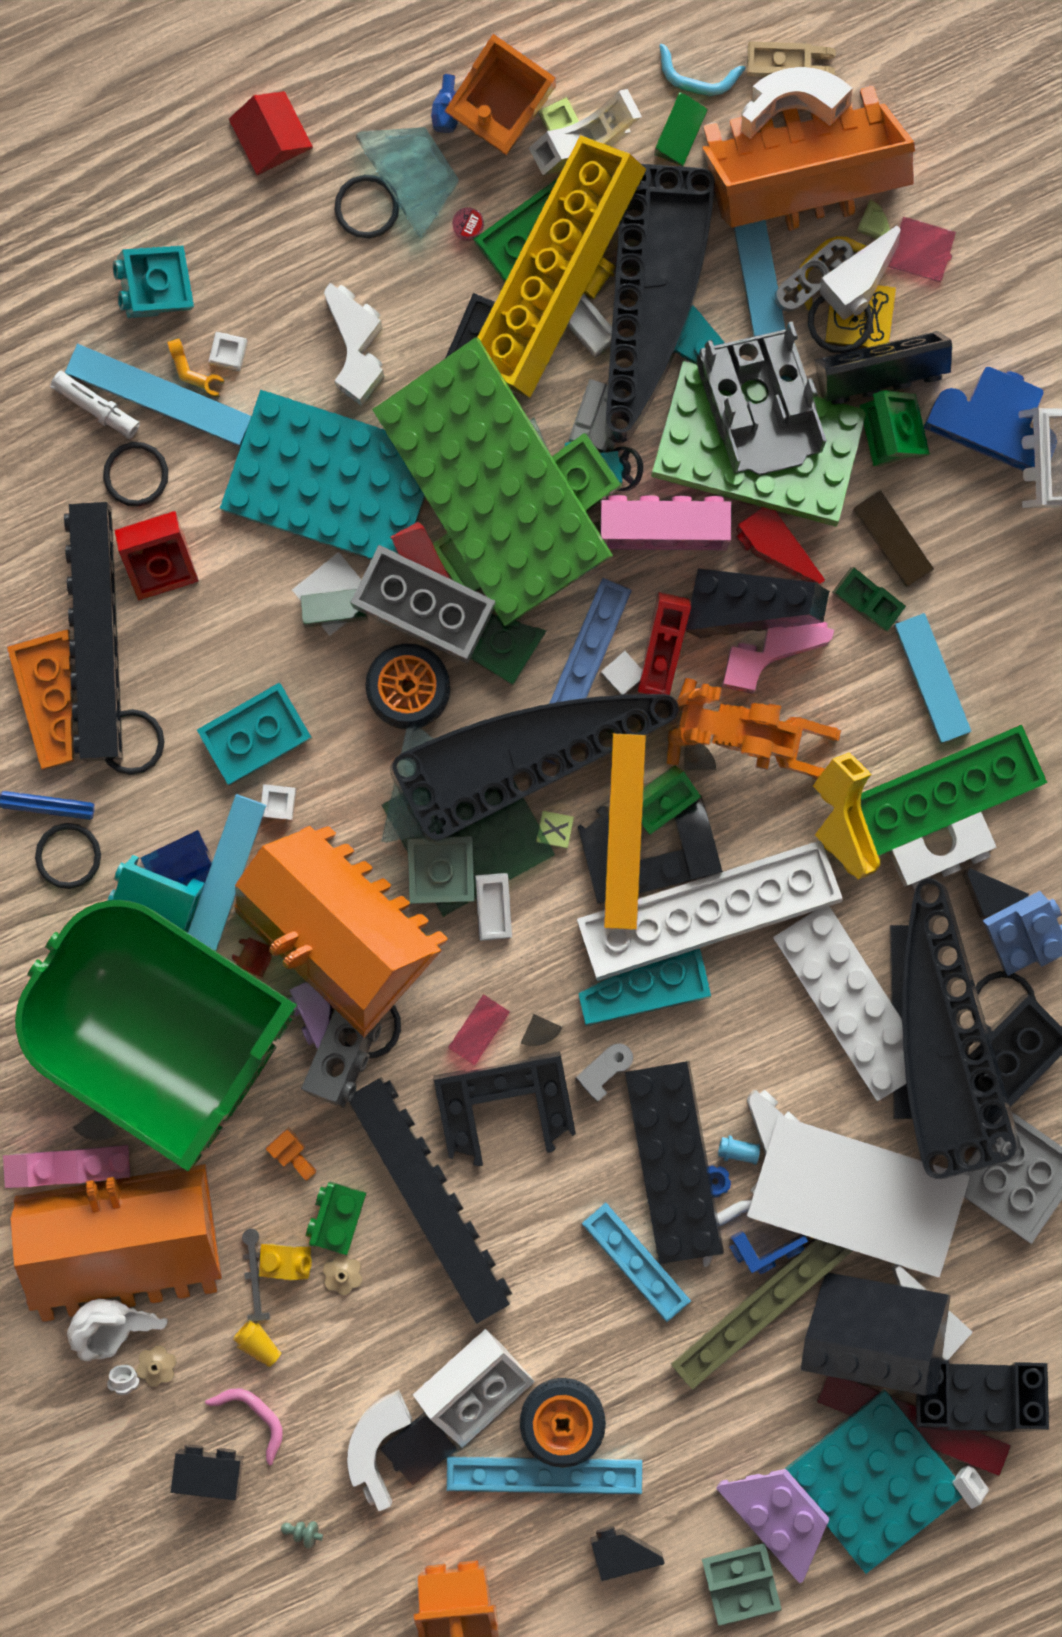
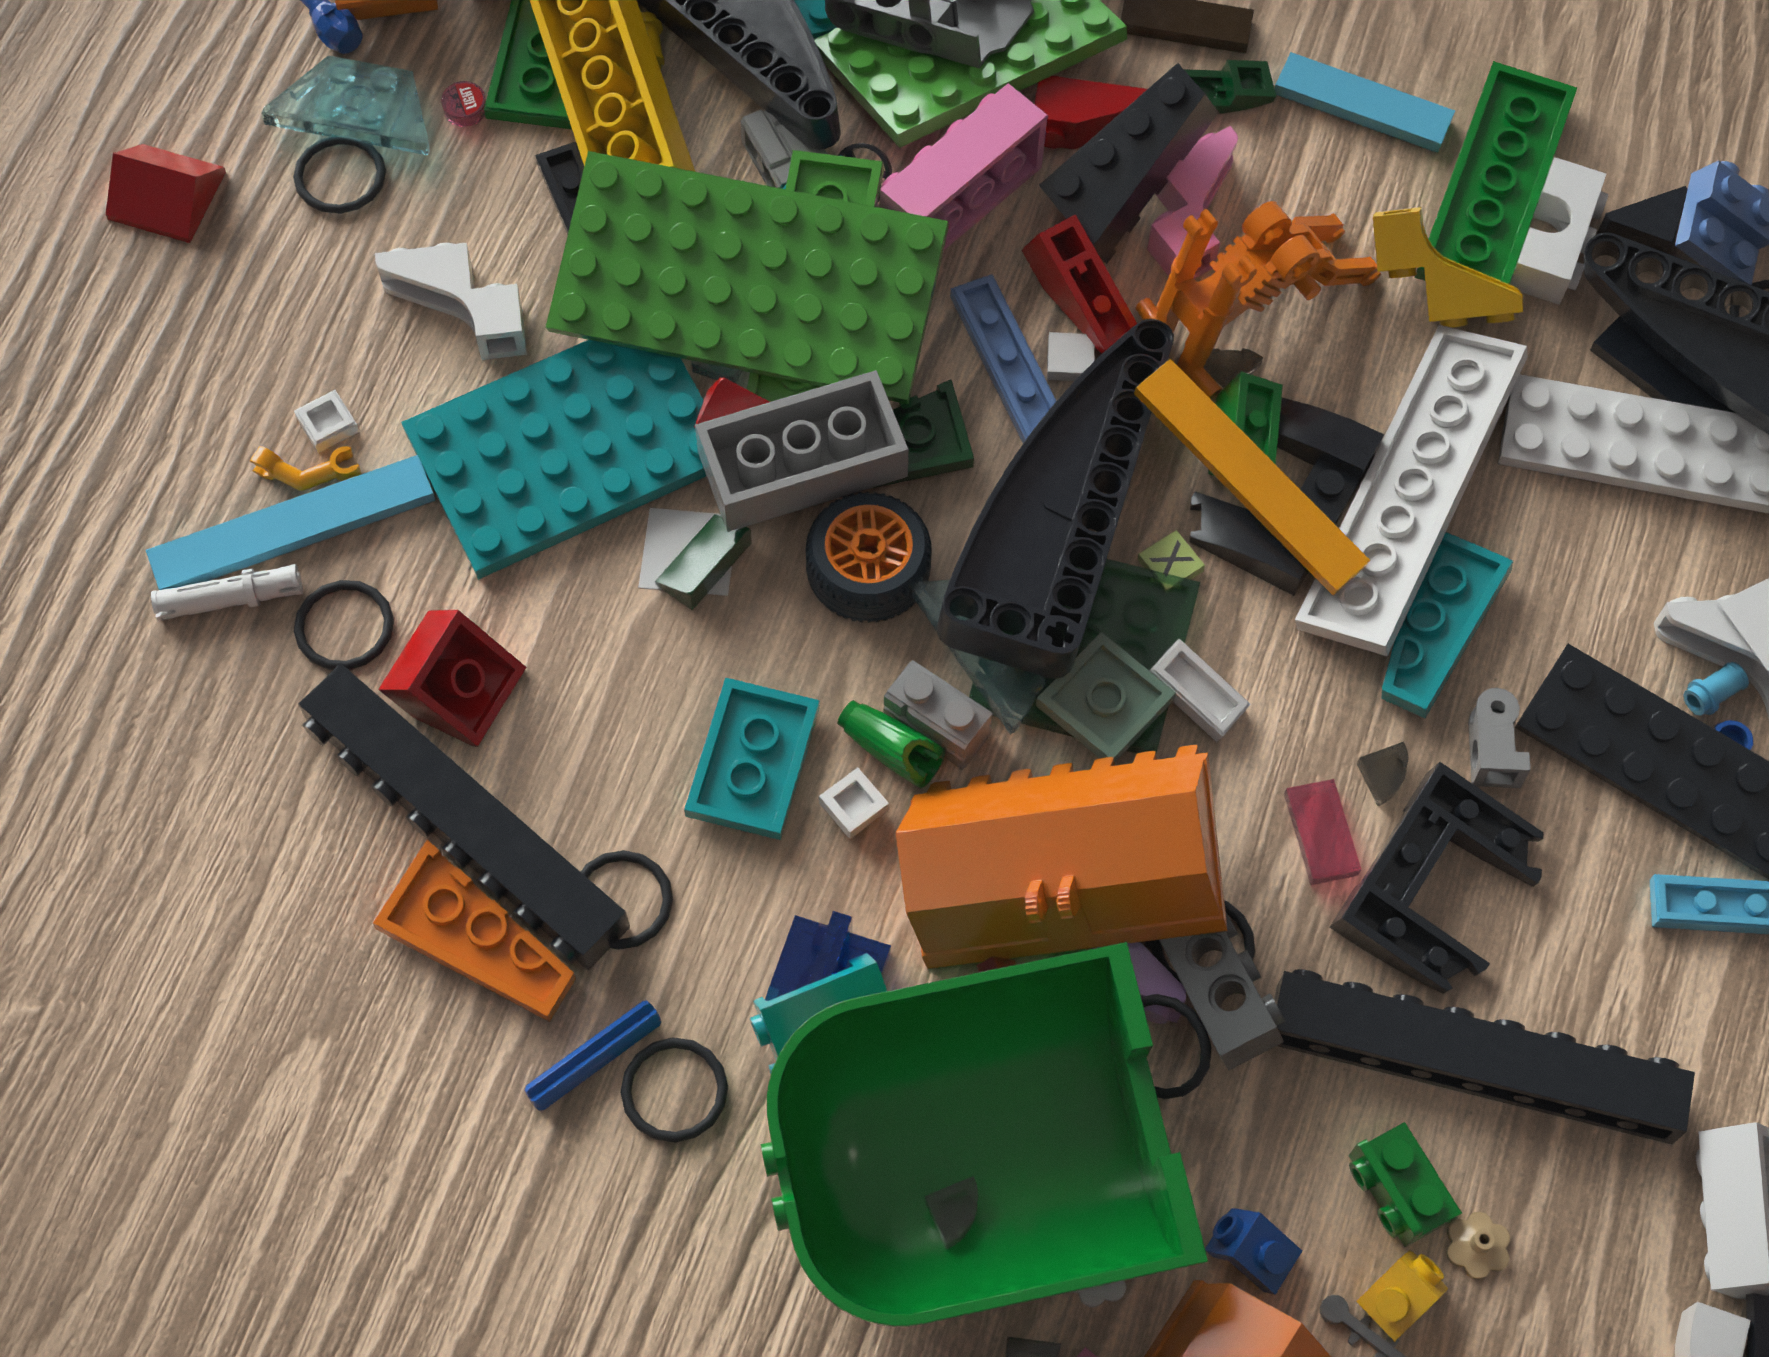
camera: 50 degrees left, 20 degrees down
(128, 1034) = (954, 1210): none -> clear smoke tile
(153, 281) = (172, 418): teal plate -> none
(226, 870) = (867, 897): medium azure tile -> none
(241, 1178) = (1254, 1248): none -> blue bracket
(287, 1149) = (1267, 1162): orange piece -> none
(311, 1047) = (1204, 1041): none -> black piece
(324, 791) = (893, 743): none -> green piece
(358, 798) = (939, 713): none -> light grey brick
(590, 327) = (695, 90): white tile -> none

